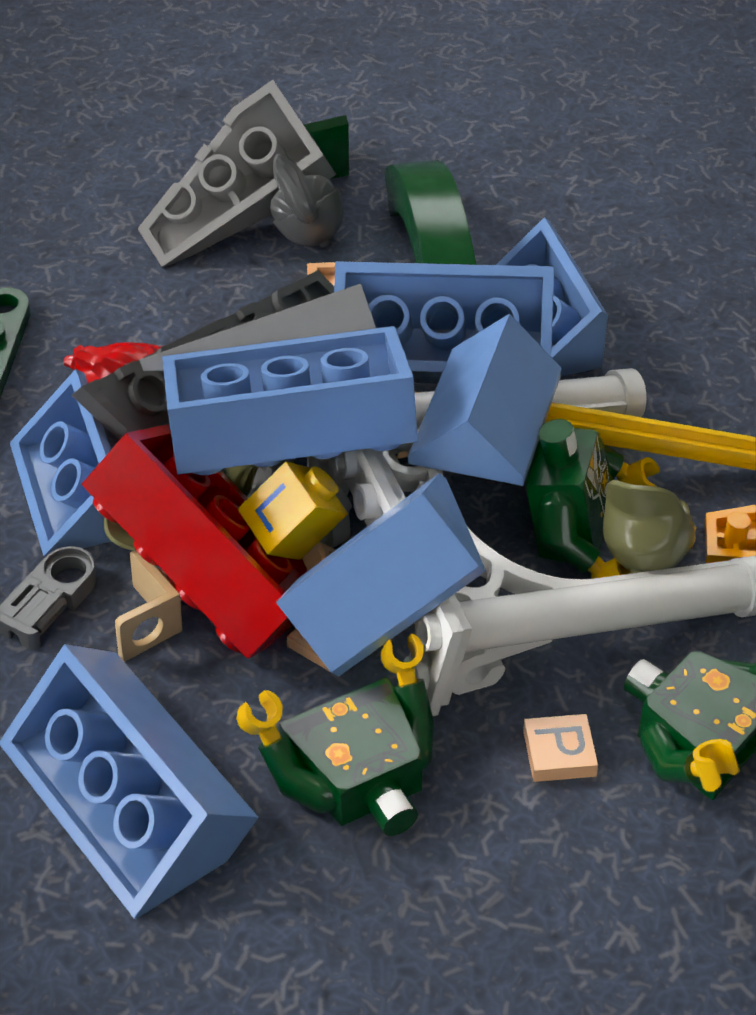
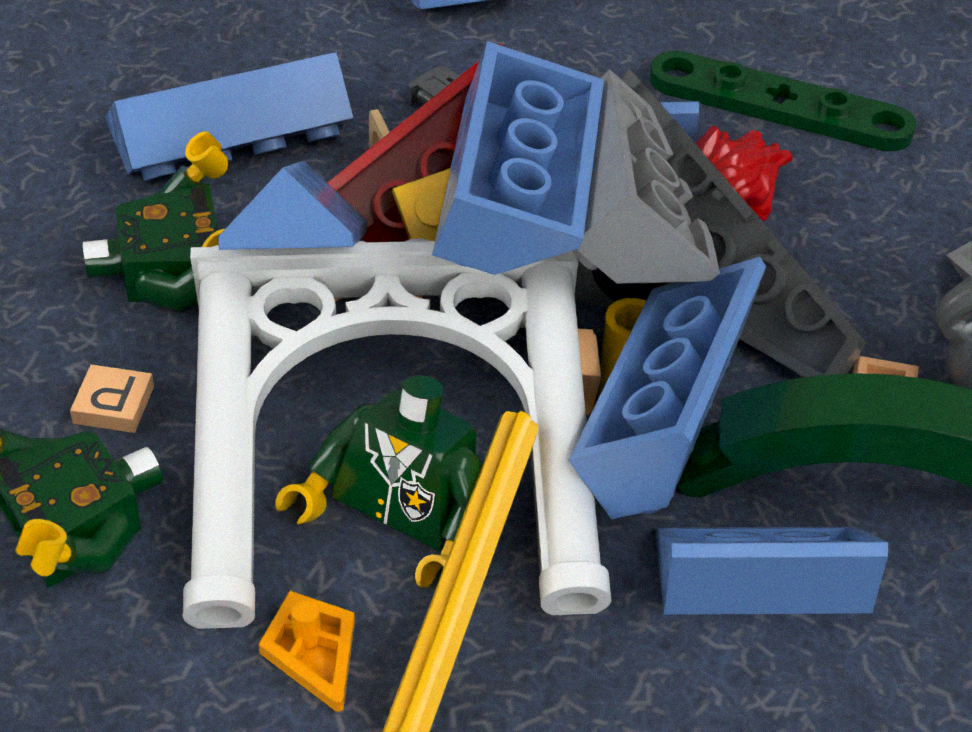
camera: 105 degrees right, 0 degrees up
(489, 406) = (498, 364): medium blue slope -> none
(646, 527) = (305, 498): olive hair -> none

